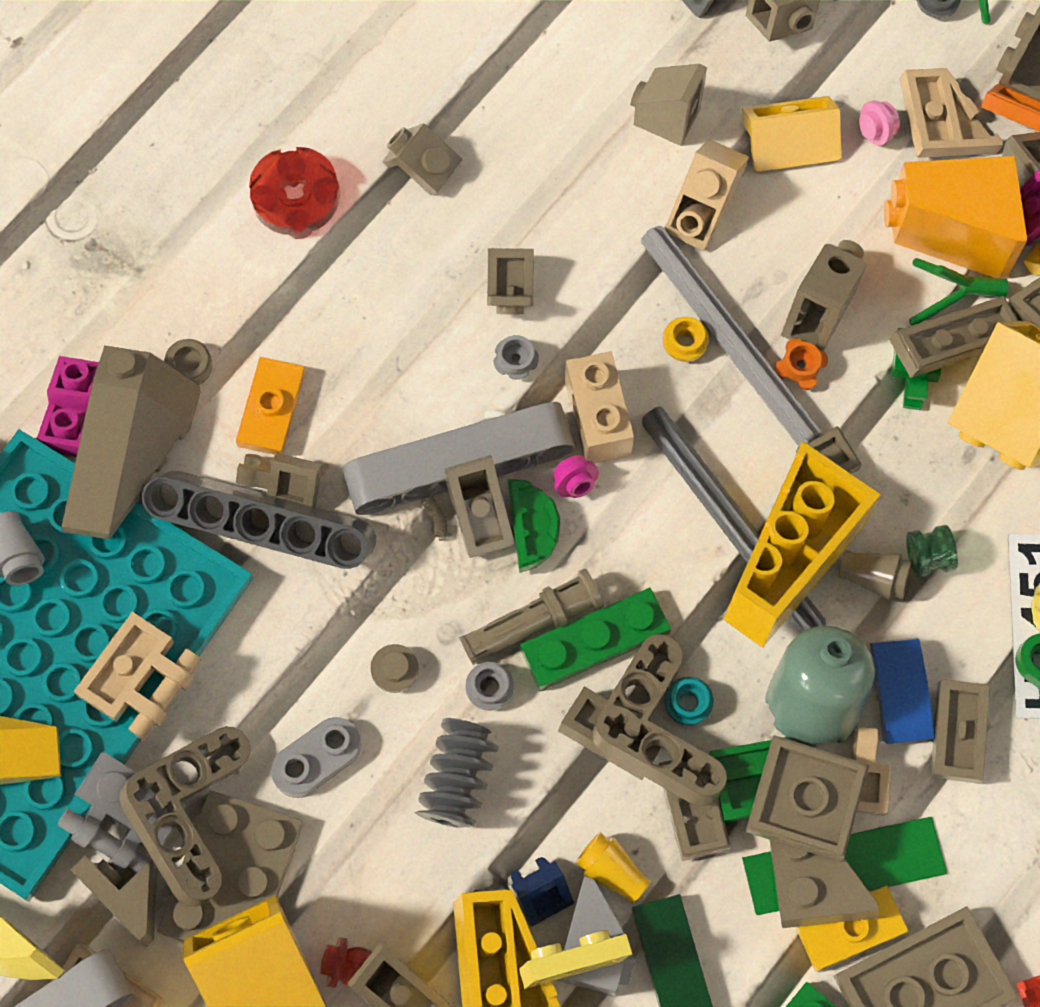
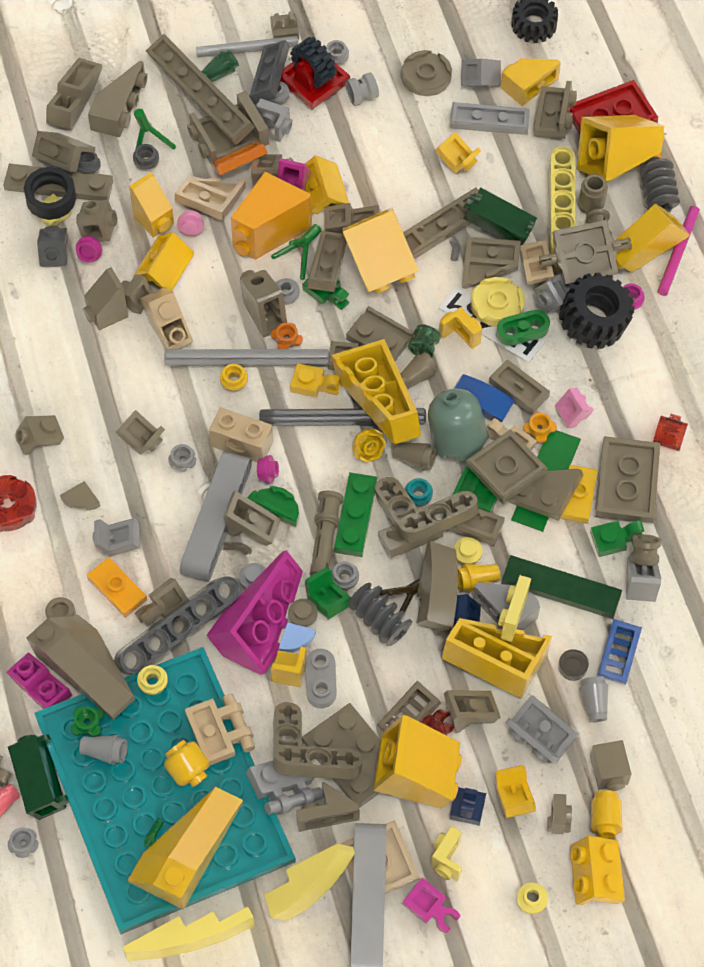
camera: 55 degrees left, 10 degrees down
(32, 492) = (87, 713): none -> green plate
(56, 667) = (186, 763): none -> yellow head
(154, 528) = (148, 672): none -> light yellow plate
(300, 704) = (289, 667): none -> yellow panel
(336, 353) = (116, 537): none -> light grey bracket
(336, 614) = (253, 622): none -> dark pink wedge
(352, 684) = (295, 637): none -> light blue tile
(368, 273) = (80, 497): none -> dark tan tile
(383, 920) = (408, 697): none -> dark tan slope
(403, 568) = (250, 573): none -> light grey plate
(440, 681) = (326, 593): none -> green bracket
(519, 779) = (410, 590): none -> dark brown plant
(553, 826) = (438, 587): none -> dark tan slope
(645, 829) = (468, 550): none -> light yellow plate
(708, 584) = (368, 445): none -> yellow plate
(716, 124) = (134, 291): none -> dark tan tile
(736, 26) = (88, 249): none -> dark pink plate
(744, 662) = (416, 454): none -> dark tan cone
(758, 441) = (310, 380): none -> yellow plate
(859, 53) = (151, 205): none -> yellow slope
(871, 326) = (291, 295): none -> light grey plate
(905, 479) = (376, 326): none -> dark tan plate
(930, 794) = (542, 420): none -> light orange plate
(983, 831) = (573, 407): none -> bright pink tile
(1000, 596) = (466, 327): none -> yellow bracket

